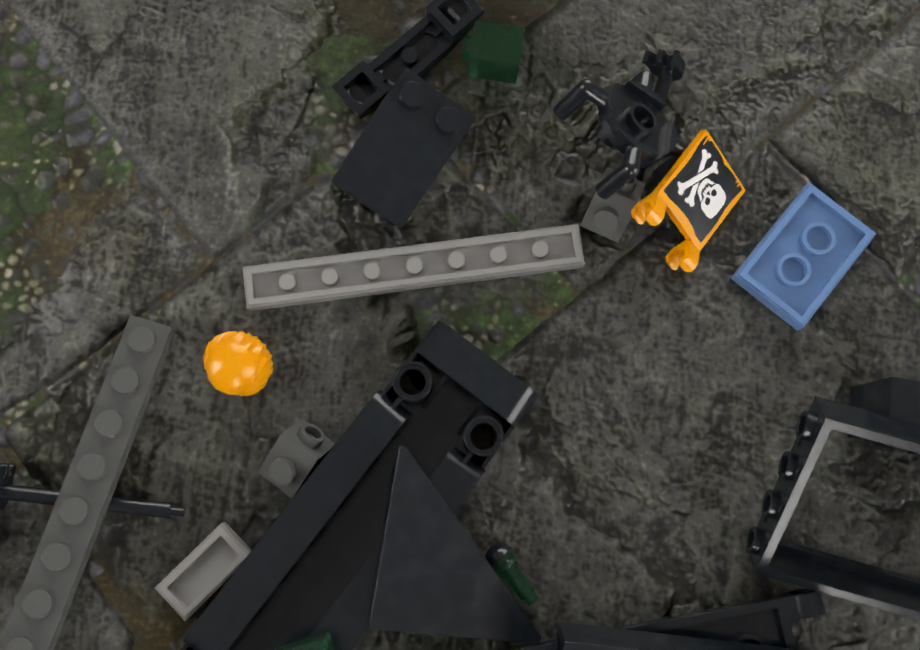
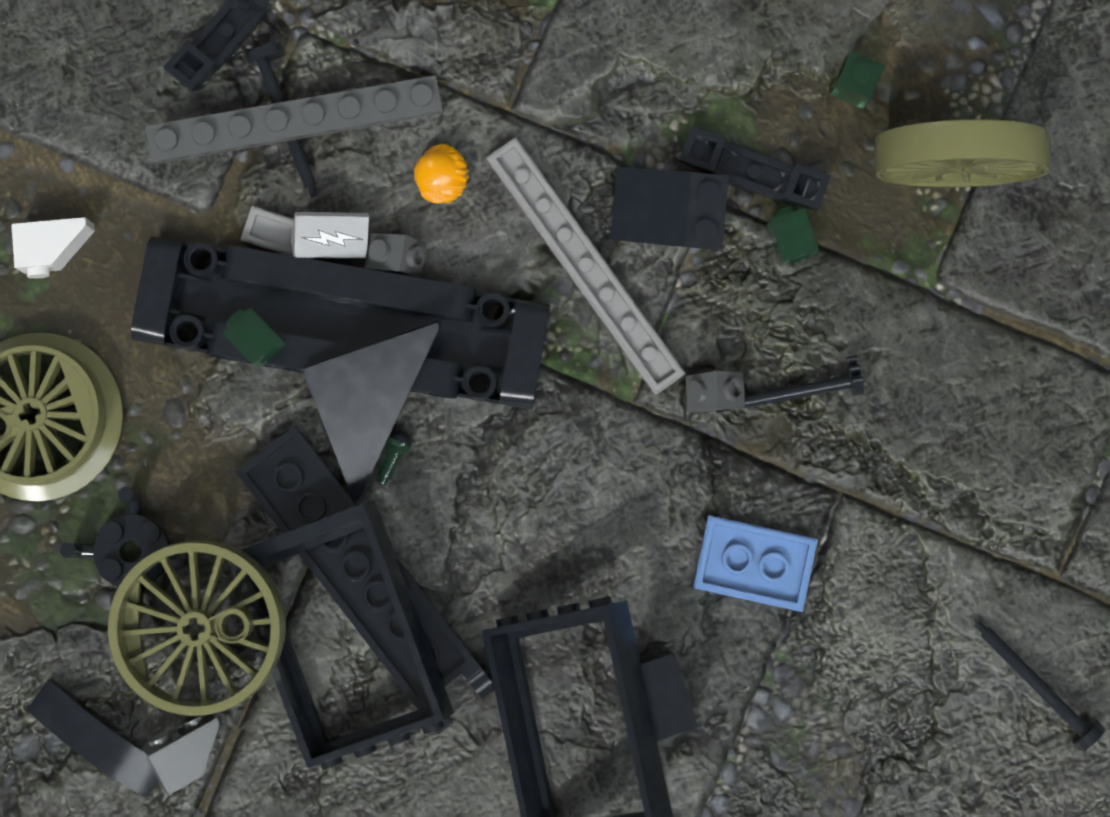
camera: 70 degrees right, 5 degrees up
(234, 517) = (329, 235): none -> slope
(630, 123) = (760, 372): black plate -> none
(696, 197) = (752, 451): flag -> none

